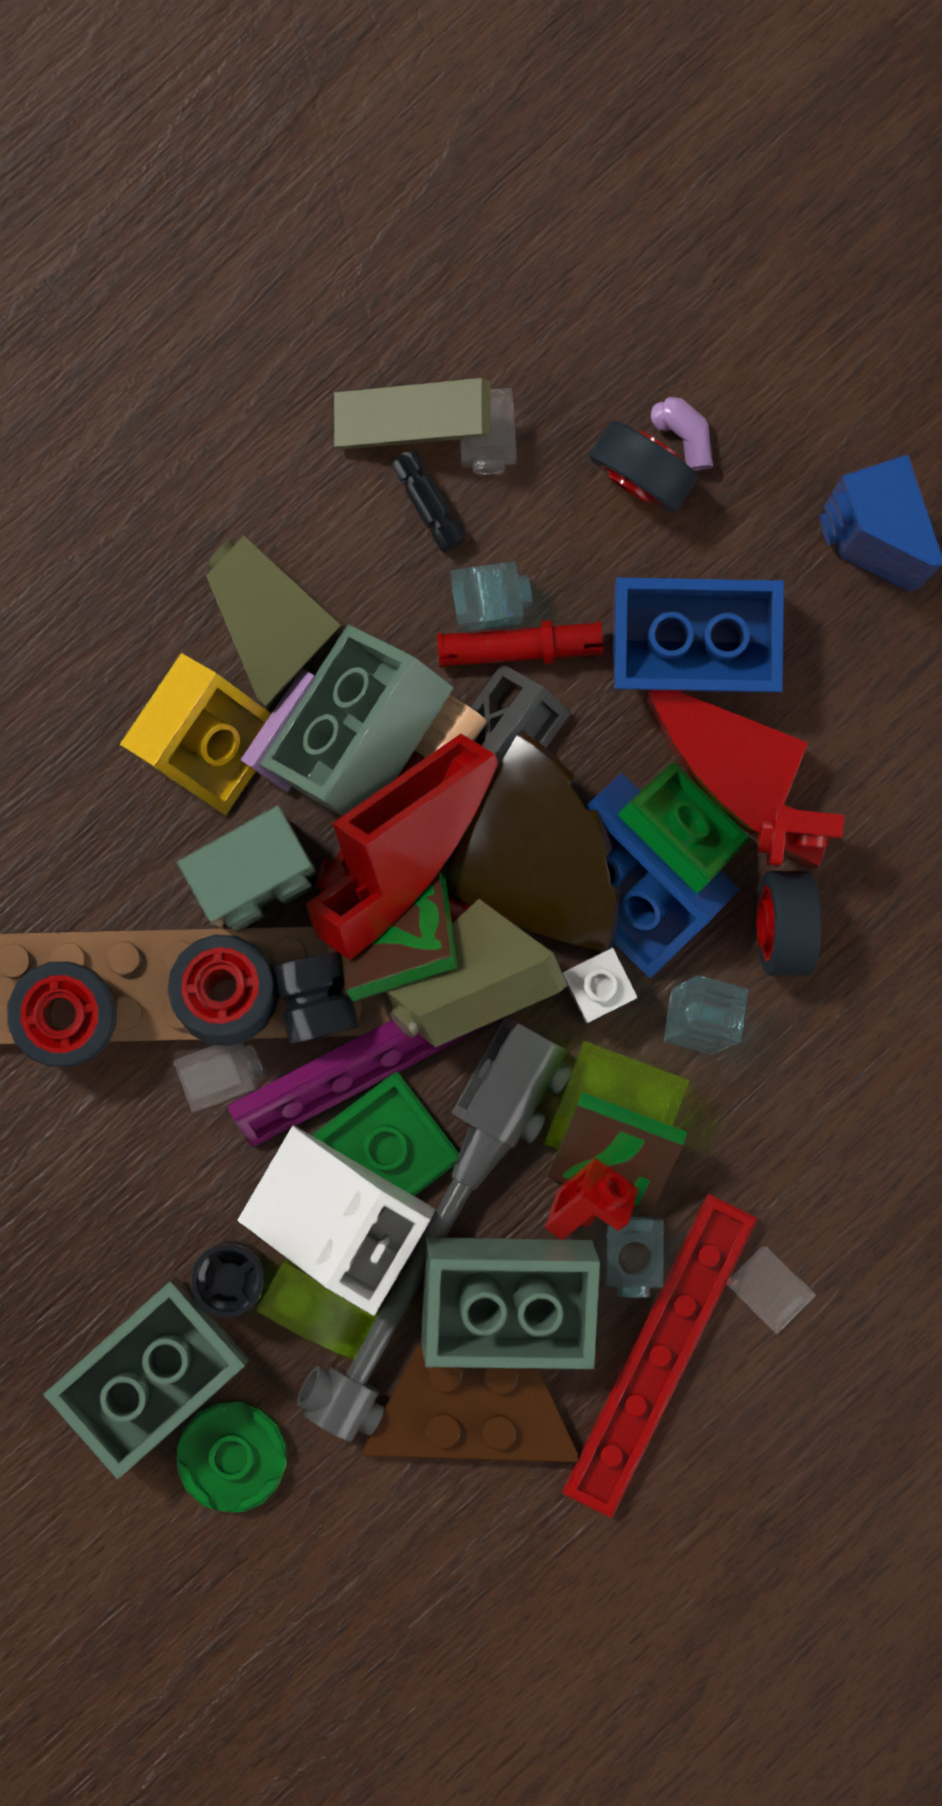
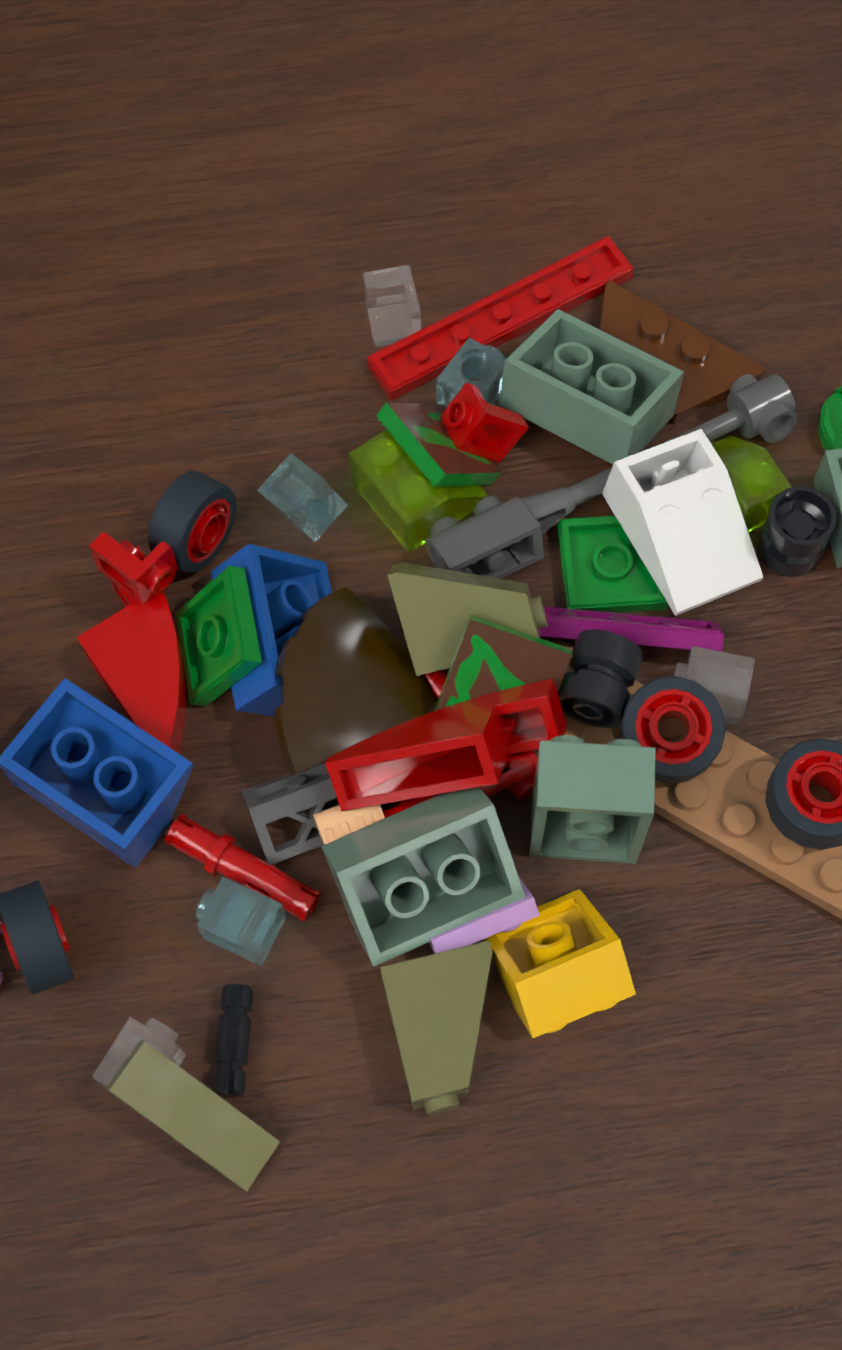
camera: 145 degrees left, 20 degrees down
(599, 985) = (365, 567): white brick -> none

